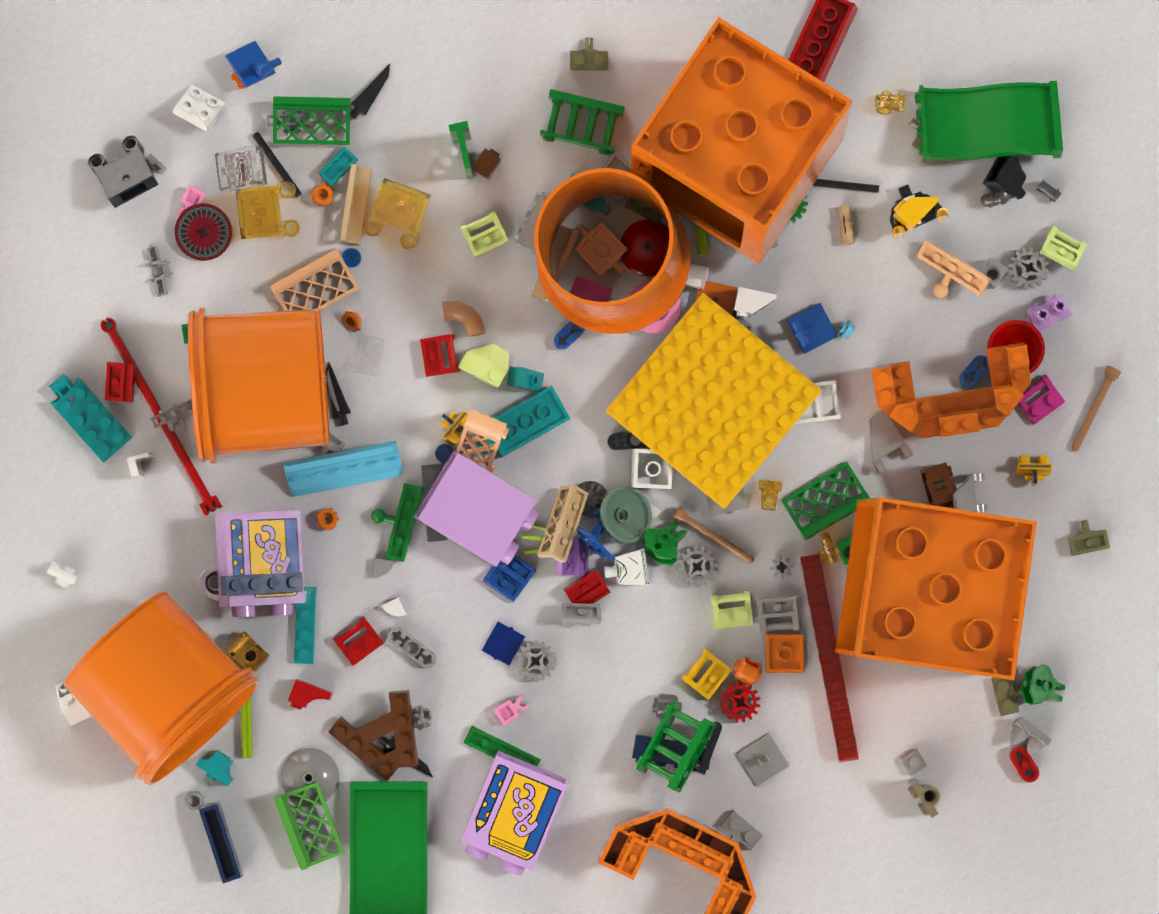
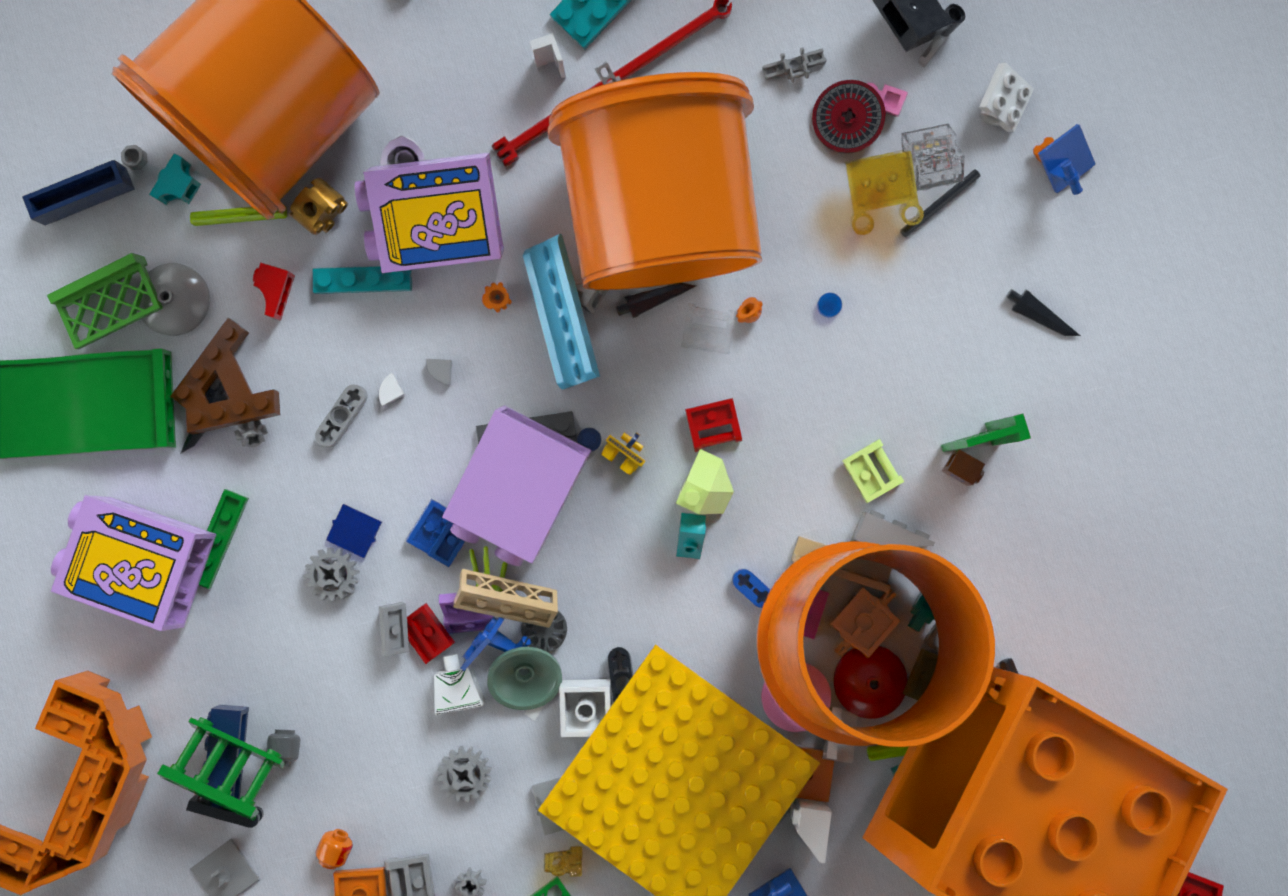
camera: 85 degrees right, 0 degrees up
(120, 382) = (651, 26): red plate -> none
(261, 584) = (395, 211): dark blue brick -> none
(298, 116) = (995, 209): light grey piece -> none
(309, 270) = (810, 253): light nougat fence -> none
(311, 103) = (1022, 234): green fence -> none
(326, 191) = (913, 262): orange animal -> none
(338, 166) = (944, 279): teal plate -> none
(355, 205) = (897, 304): tan fence -> none
(362, 646) = (339, 353): red plate -> none
(401, 208) = (899, 361): clear yellow piece -> none
(402, 522) = (498, 392): green plate -> none
(466, 315) = (767, 454): medium nougat cylinder -> none
(484, 428) = (620, 489): light nougat piece -> none
(508, 711) = (266, 543): bright pink plate -> none
(530, 420) = (634, 537): teal hinge -> none
(576, 103) = (1051, 578): green fence -> none
(589, 58) = (1108, 589): olive plate -> none
(662, 544) = (491, 731): green hinge -> none
(682, 516) = (529, 748): medium nougat piece -> none
(712, 677) = (322, 801): yellow plate -> none
(732, 616) = (405, 824): yellowish green plate -> none
(734, 709) = (284, 837): red gear -> none
(741, 830) = (130, 852): light grey plate -> none

